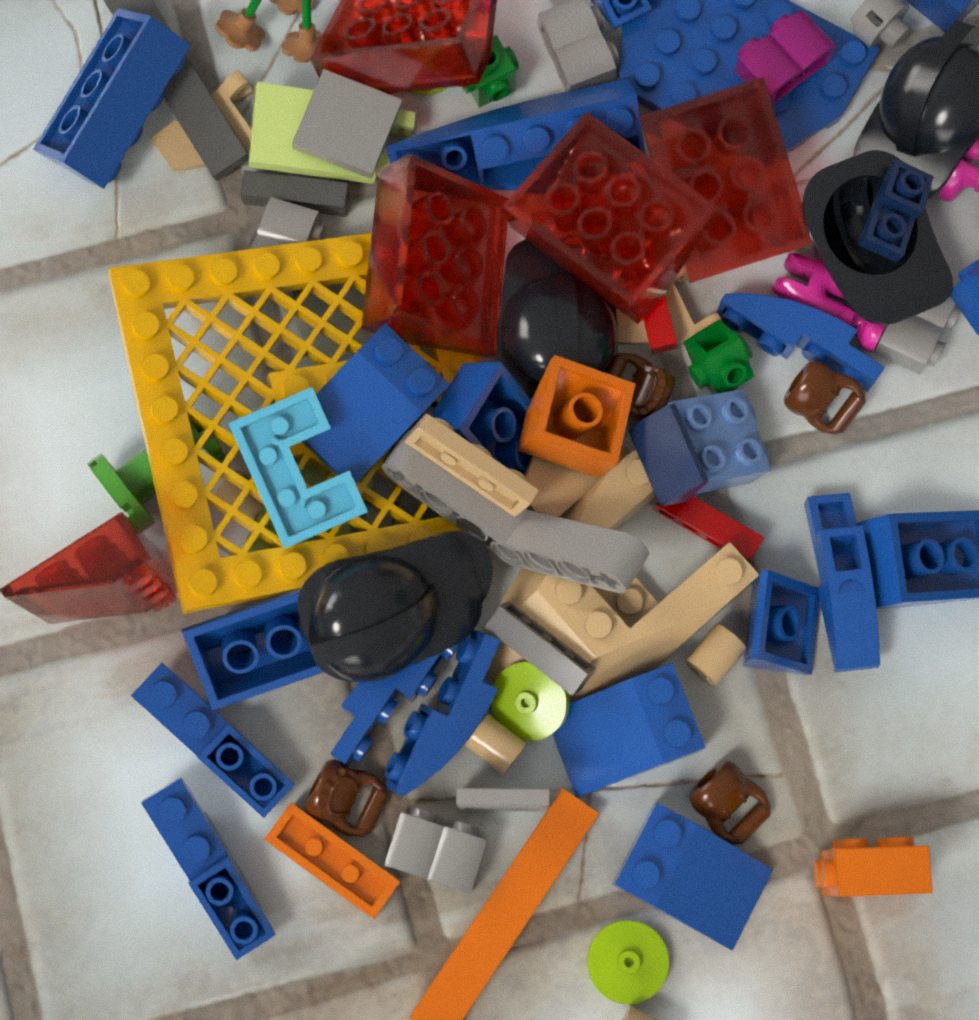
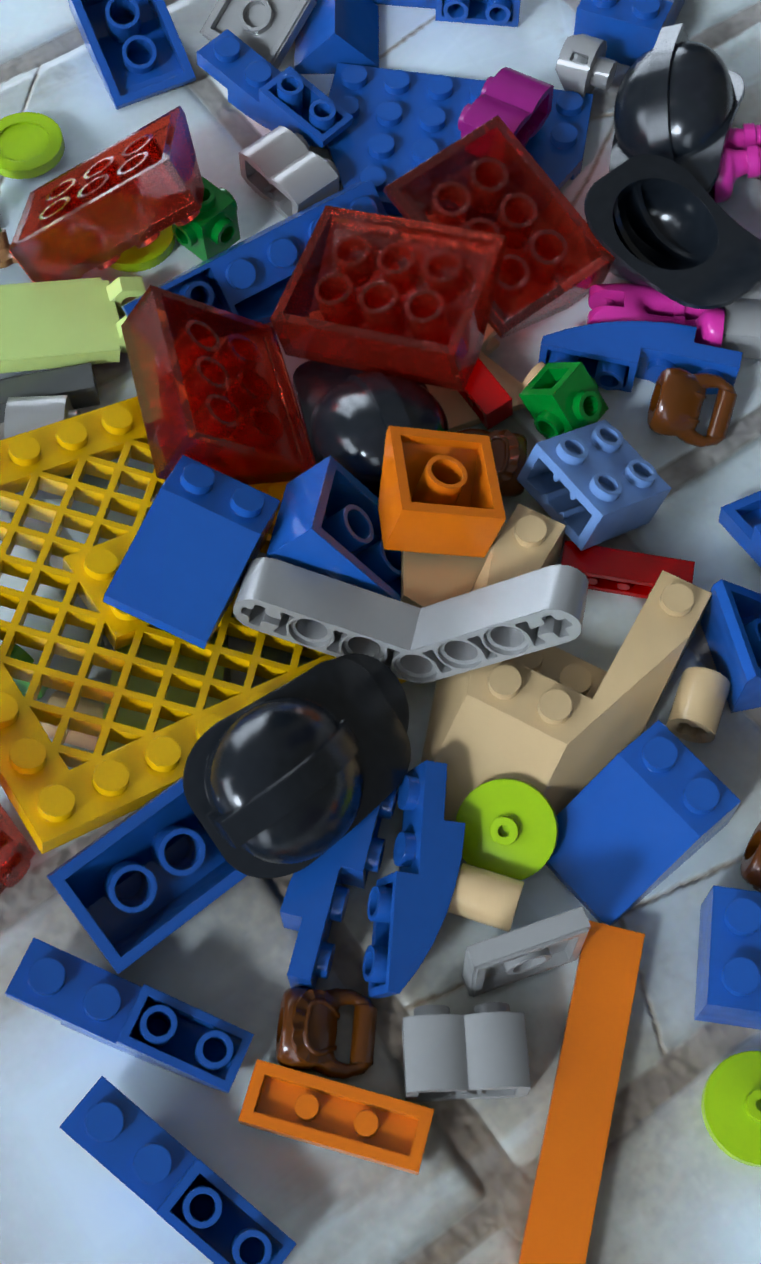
camera: 20 degrees left, 15 degrees down
(265, 445) = (86, 621): medium azure plate -> none
(347, 123) = (70, 300): light grey tile -> none
(472, 464) = (339, 567): tan plate -> none
(540, 648) = (497, 757): piece -> none
(668, 456) = (558, 497): dark blue slope -> none
(895, 210) = (683, 200): dark blue slope -> none

